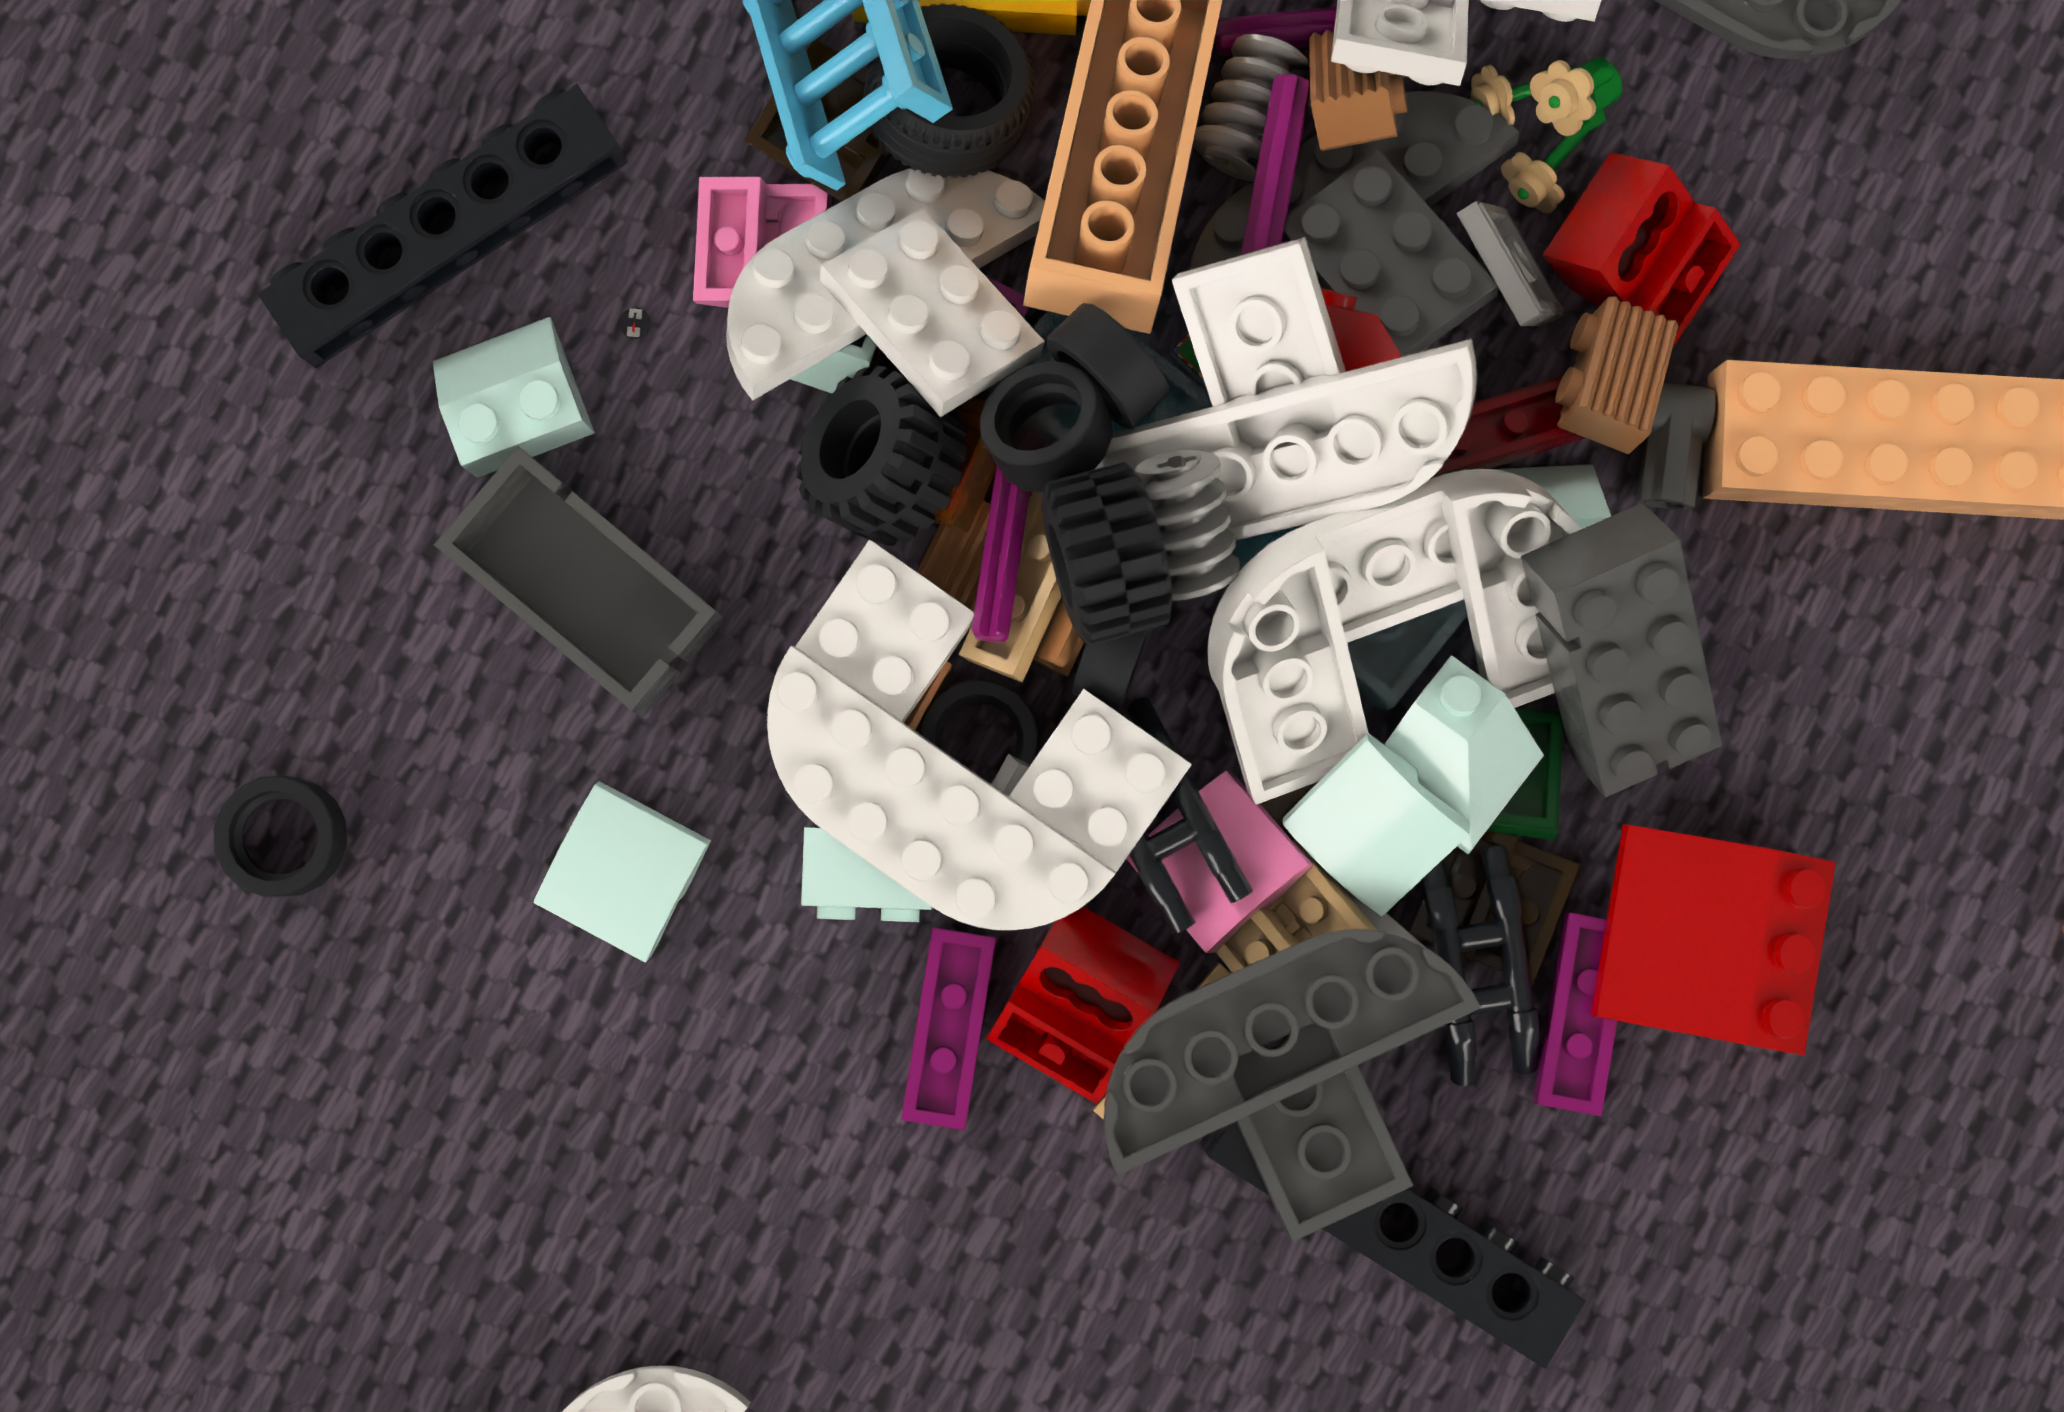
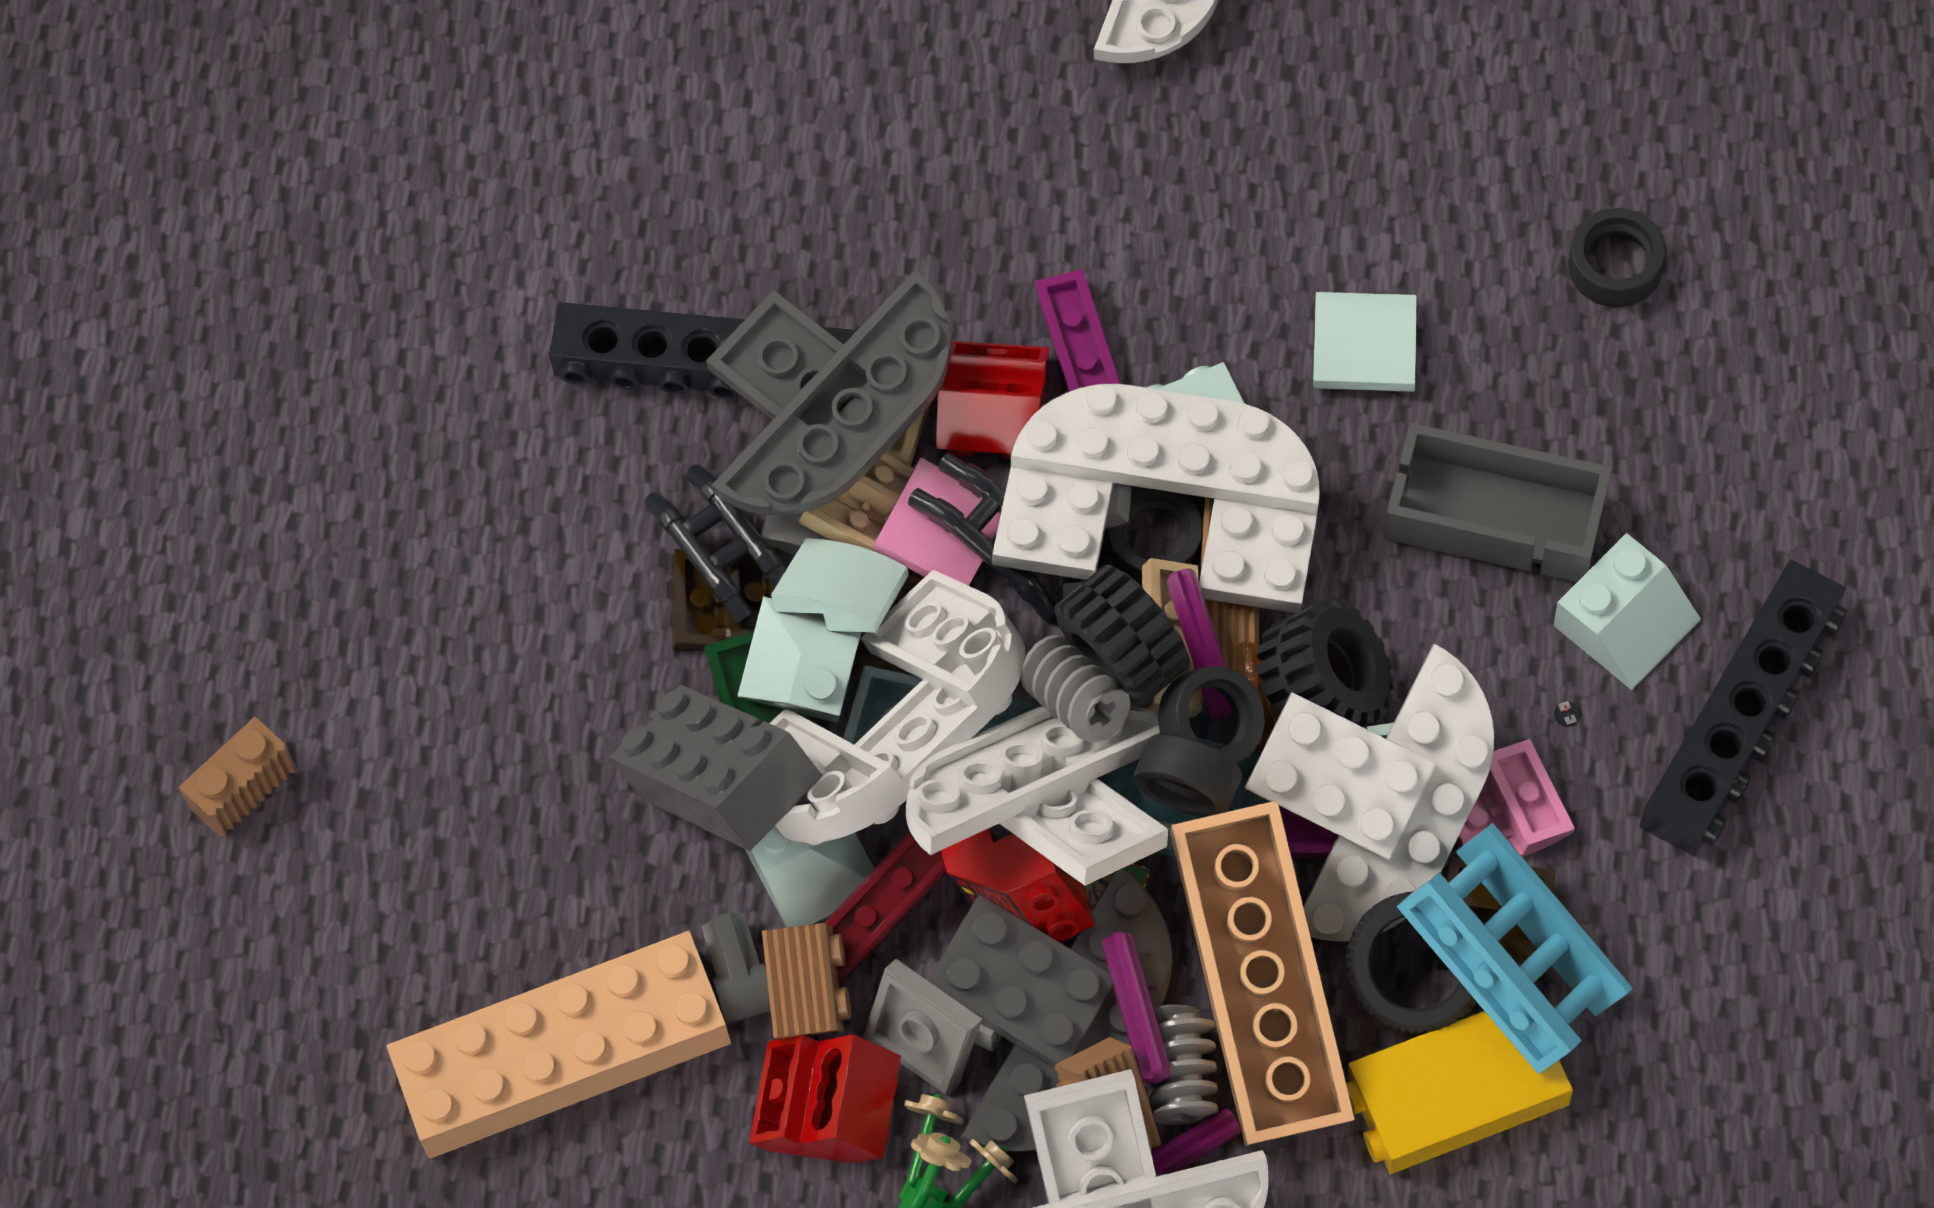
camera: 160 degrees right, 20 degrees down
(1574, 1043) = (629, 548): magenta plate -> none
(1713, 939) = (558, 628): red slope -> none

